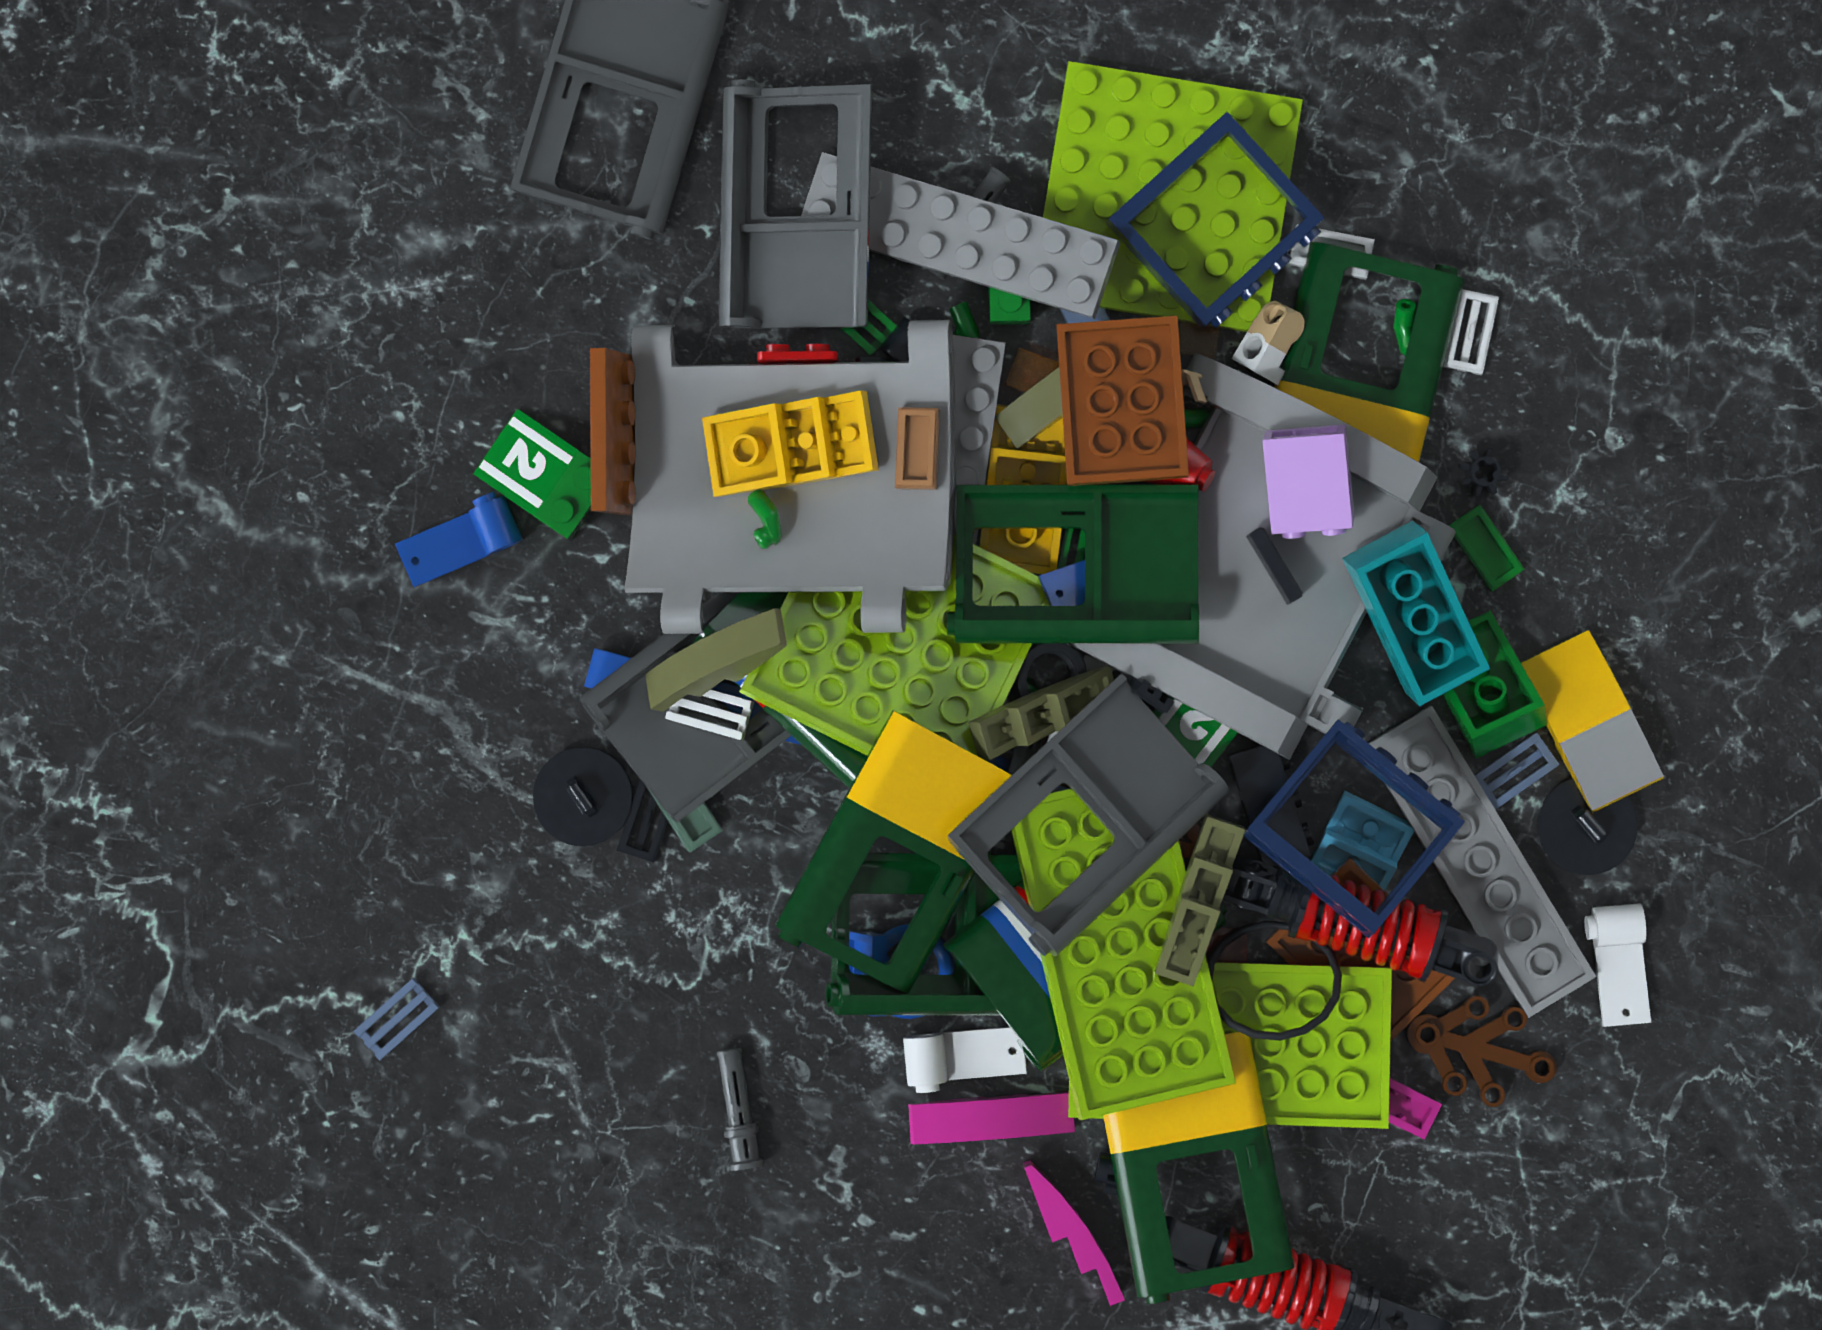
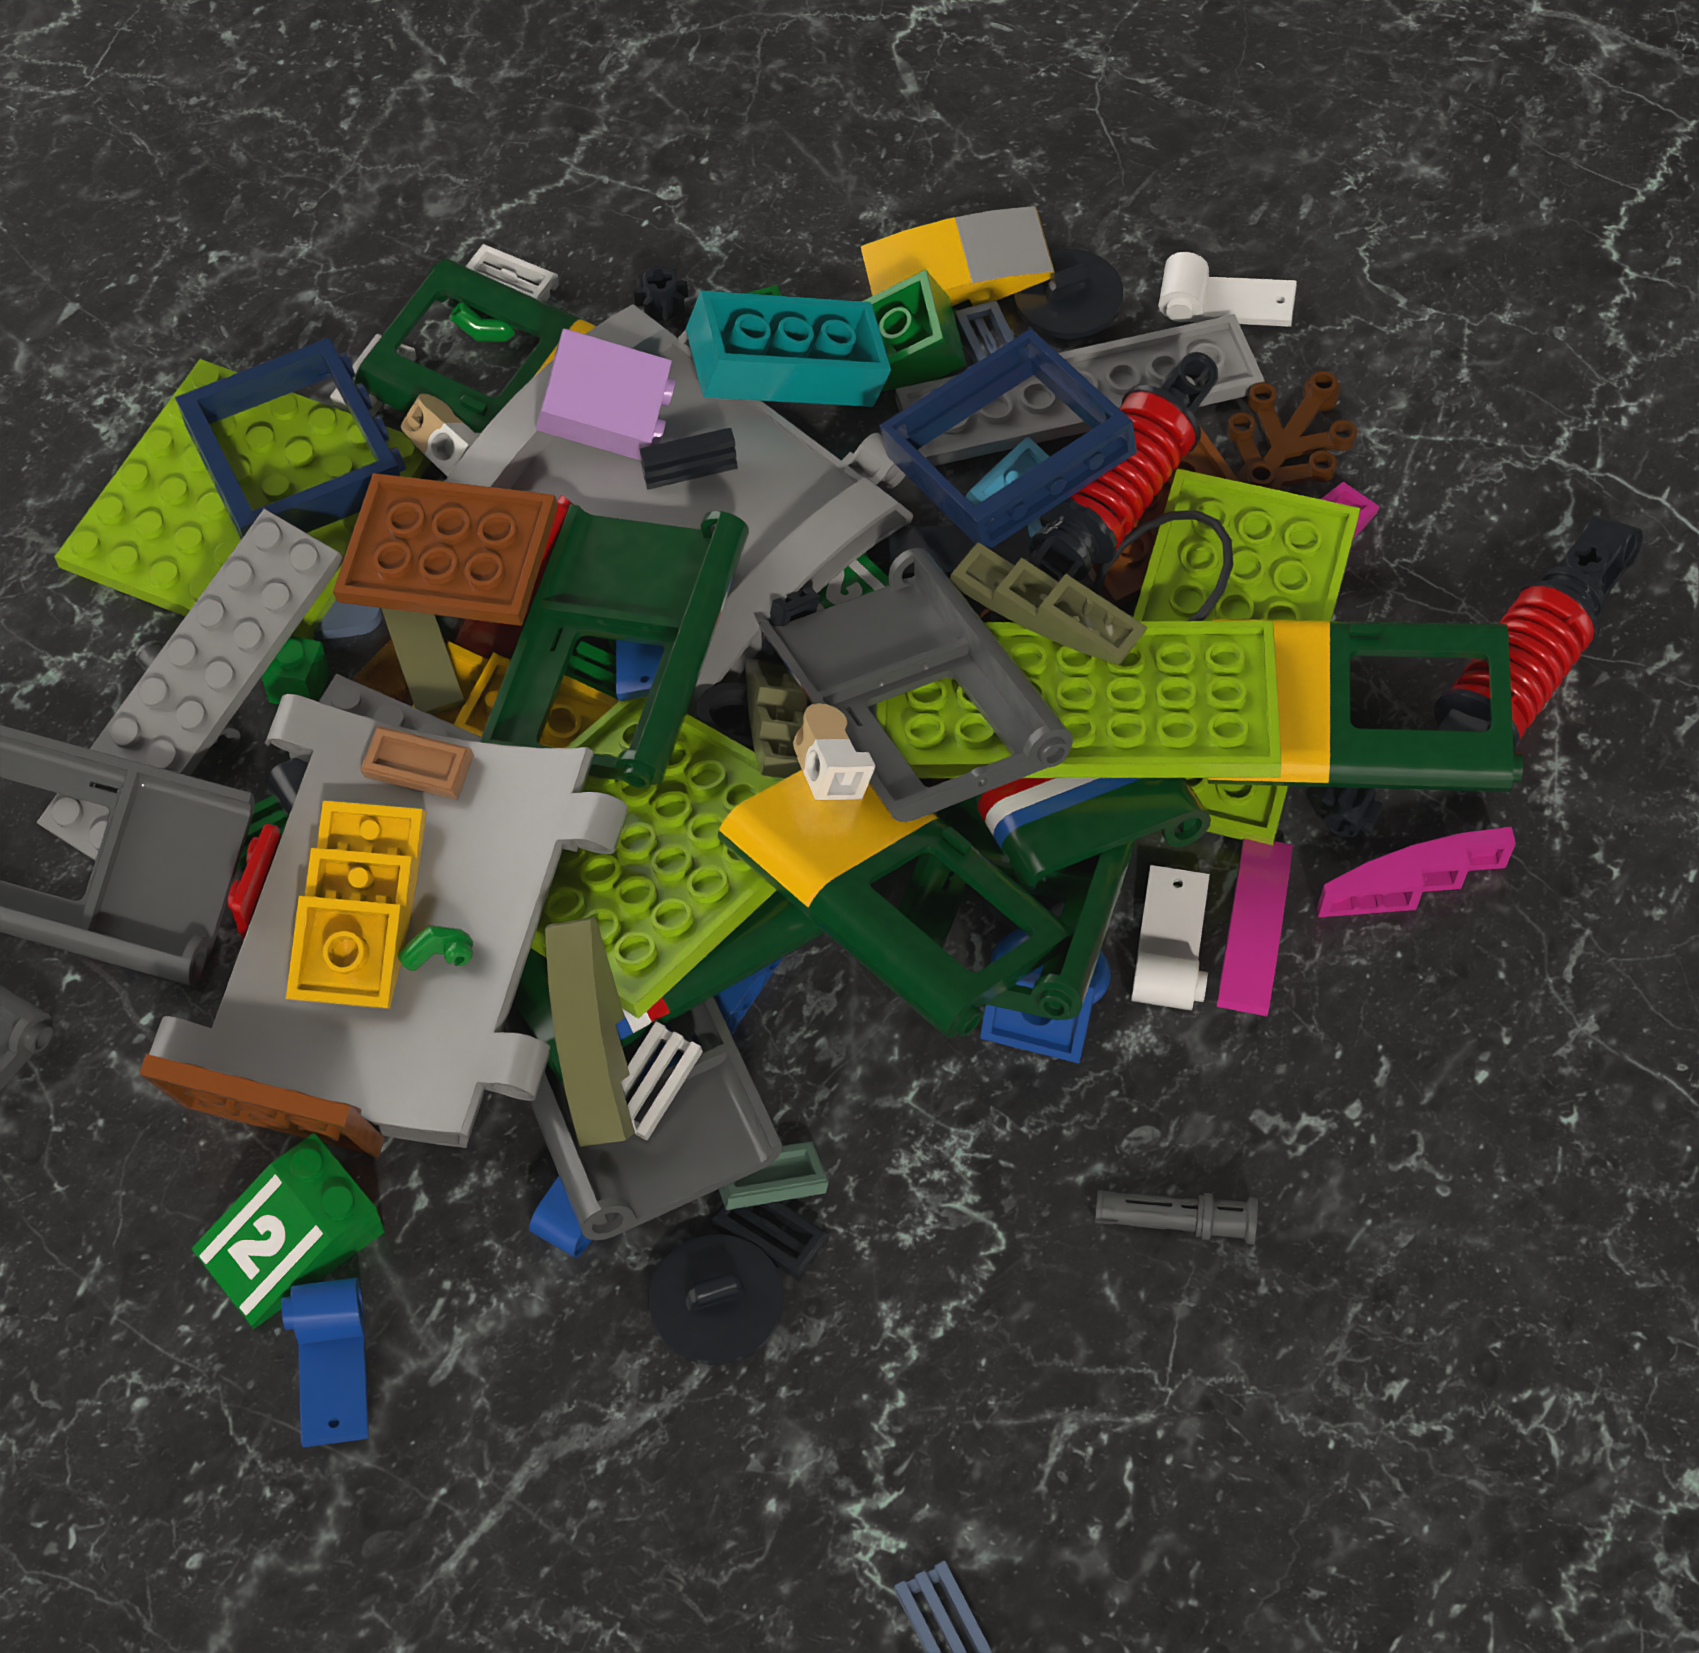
camera: 70 degrees left, 30 degrees down
(987, 772) = (829, 757): none -> white leg

